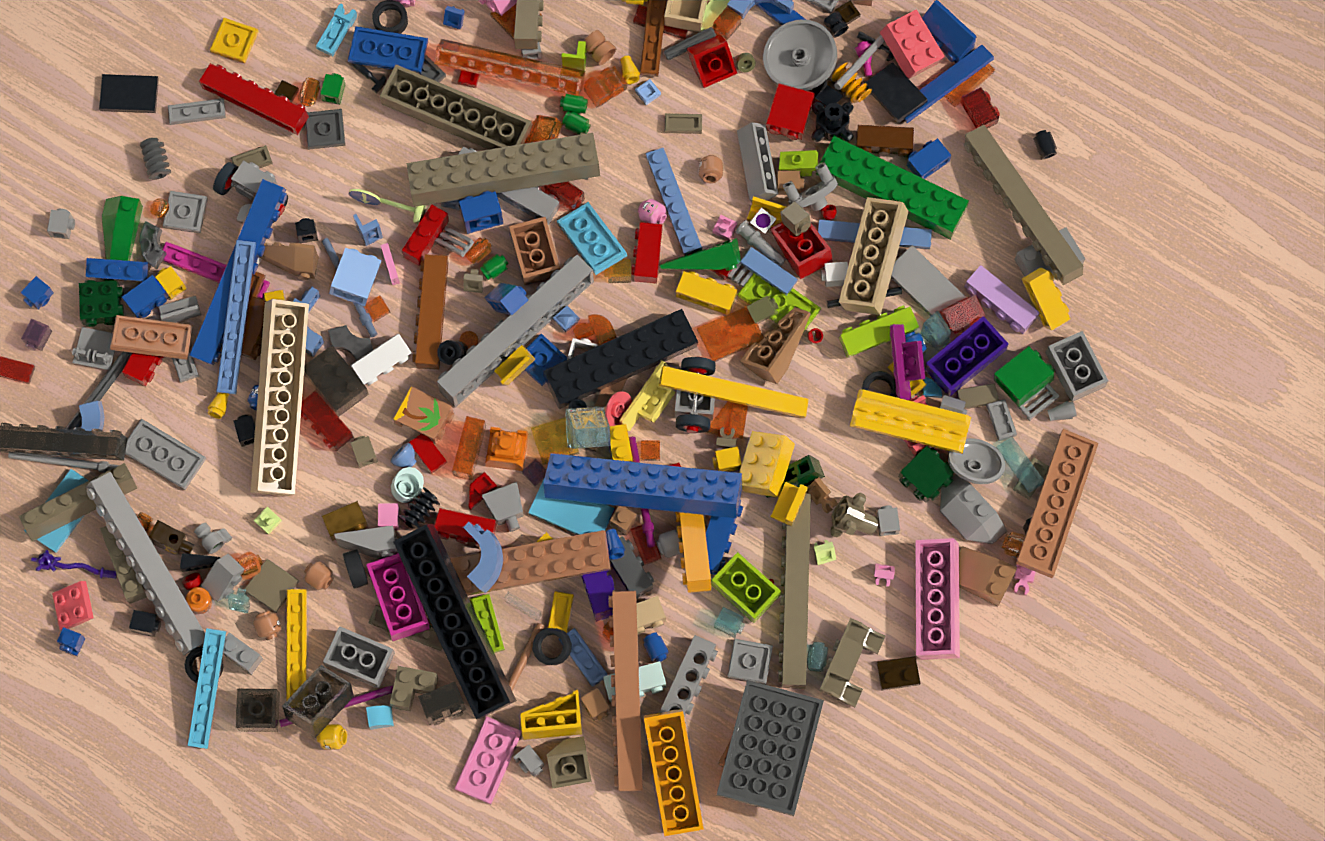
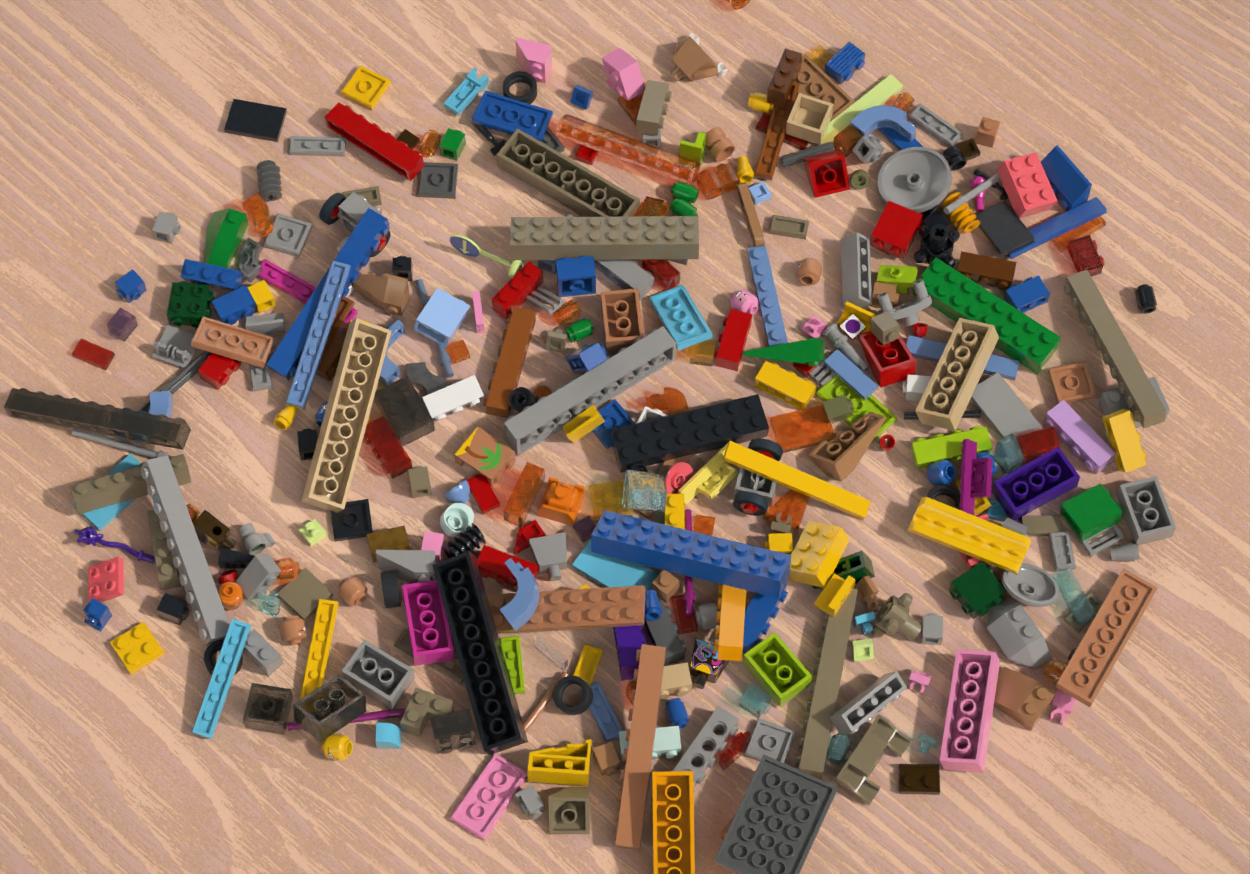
camera: 10 degrees right, 10 degrees down
(117, 668) = (137, 648): none -> yellow plate
(147, 190) = (255, 209): none -> clear orange brick
(163, 454) = (223, 455): light grey tile -> none
(306, 502) = (352, 521): none -> black tile
(369, 232) = (463, 277): medium blue panel -> none
(566, 319) = (642, 389): medium blue tile -> none
(643, 117) = (750, 214): none -> medium nougat beam
(674, 593) = (705, 664): none -> torso
(720, 670) = (738, 746): none -> clear red slope
(749, 29) = (868, 149): none -> light grey brick
(821, 523) = (865, 622): none -> medium azure tile
(839, 608) = (868, 703): none -> light grey brick
(873, 359) = (941, 472): none -> blue head
(901, 636) = (927, 743): none -> clear light blue tile
(986, 244) = (1072, 383): none -> nougat plate

